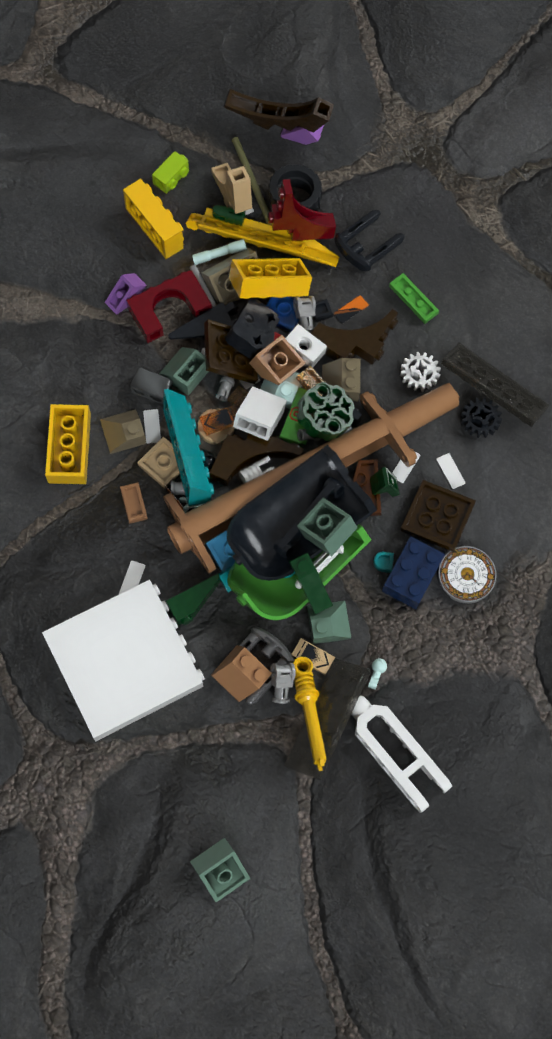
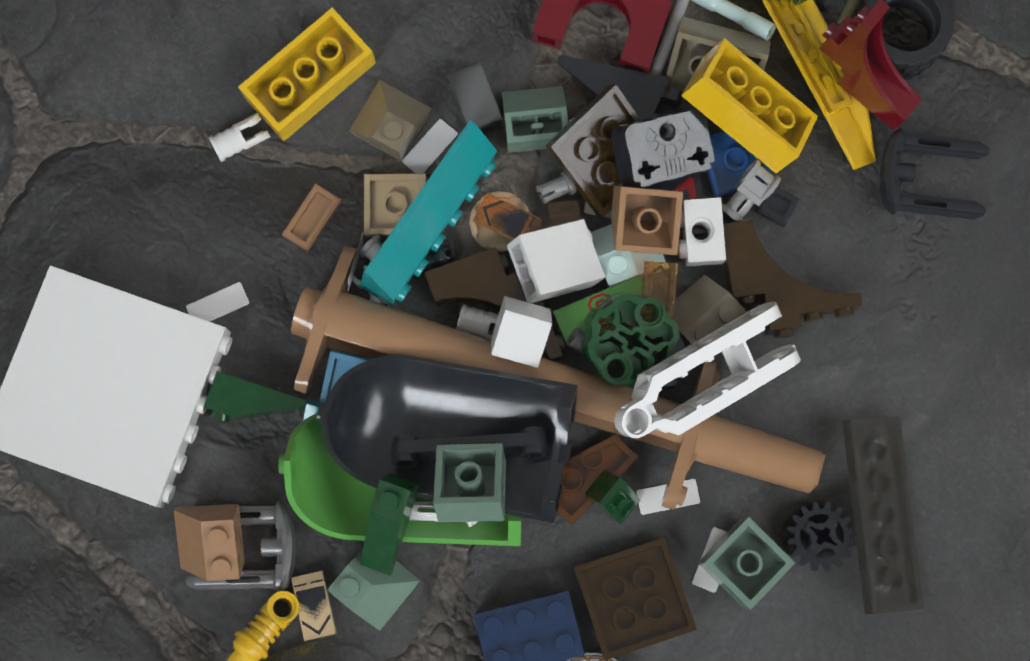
camera: 55 degrees right, 10 degrees up
(64, 503) = (232, 141): none -> white hinge
(278, 451) = (521, 331): none -> white head
(282, 679) = (242, 599): light grey connector -> none
(351, 309) = (817, 240): sticker -> none
(383, 379) = (747, 375): none -> white piece
(384, 561) = (514, 583): teal tile -> none
(414, 298) = (906, 305): bright green plate -> none
(426, 367) = (820, 412): white gear -> none
(465, 455) = (746, 562): none -> sand green brick

